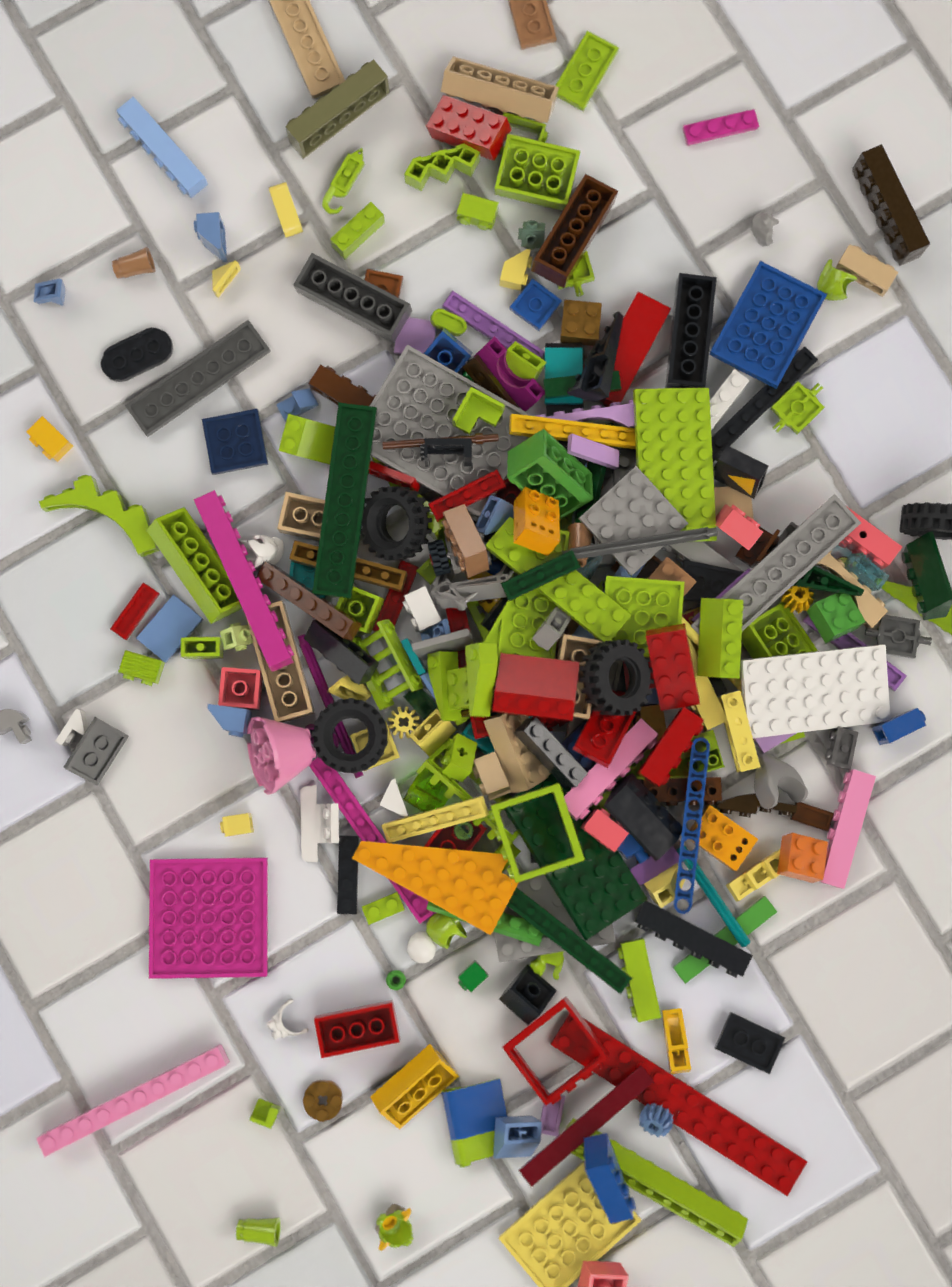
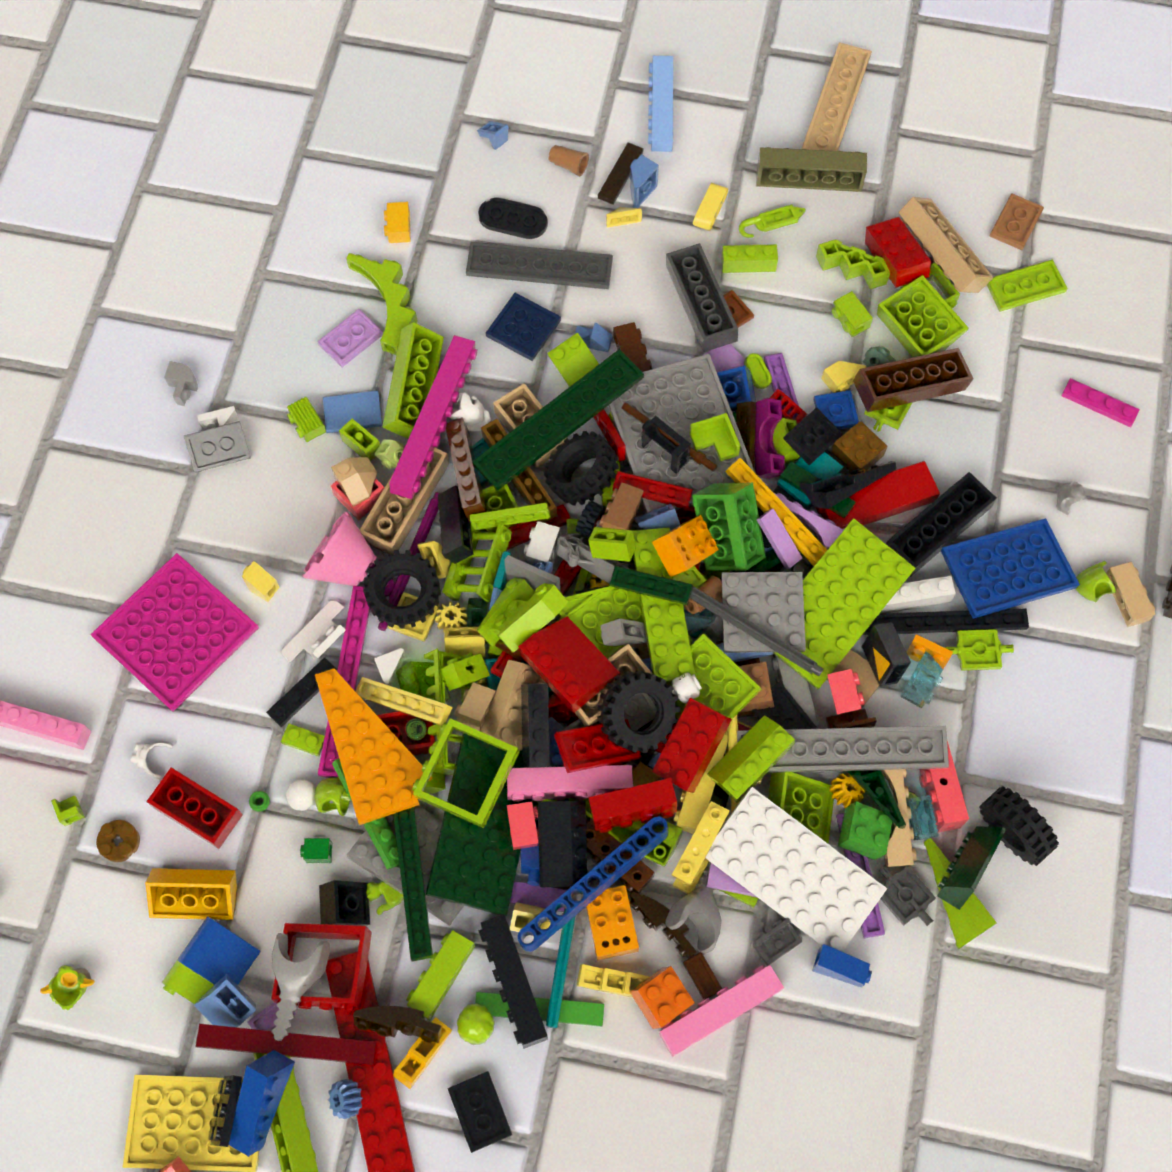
camera: 45 degrees right, 15 degrees down
(107, 569) = (350, 338): none -> lavender tile
(134, 611) = (340, 379): red plate -> none
(185, 240) = (619, 174): none -> dark brown tile
(231, 719) = (330, 503): medium blue slope -> none
(234, 683) = (355, 478): none -> tan slope
(381, 610) = (510, 516): none -> lime tile
(483, 568) = (612, 544): none -> lime brick
(484, 330) = (779, 395): none -> red slope
(542, 344) = (812, 436): none -> black plate
(552, 1082) = (294, 979): none -> light grey animal
(588, 1205) = (225, 1111): none -> black plate
(632, 628) = (686, 687): none -> white head
(637, 1043) = (390, 1019): none -> dark brown slope
(694, 990) = (475, 1024): none -> lime hair
(772, 442) = (920, 645): none -> light orange plate
(780, 468) = (923, 681): none -> clear light blue slope

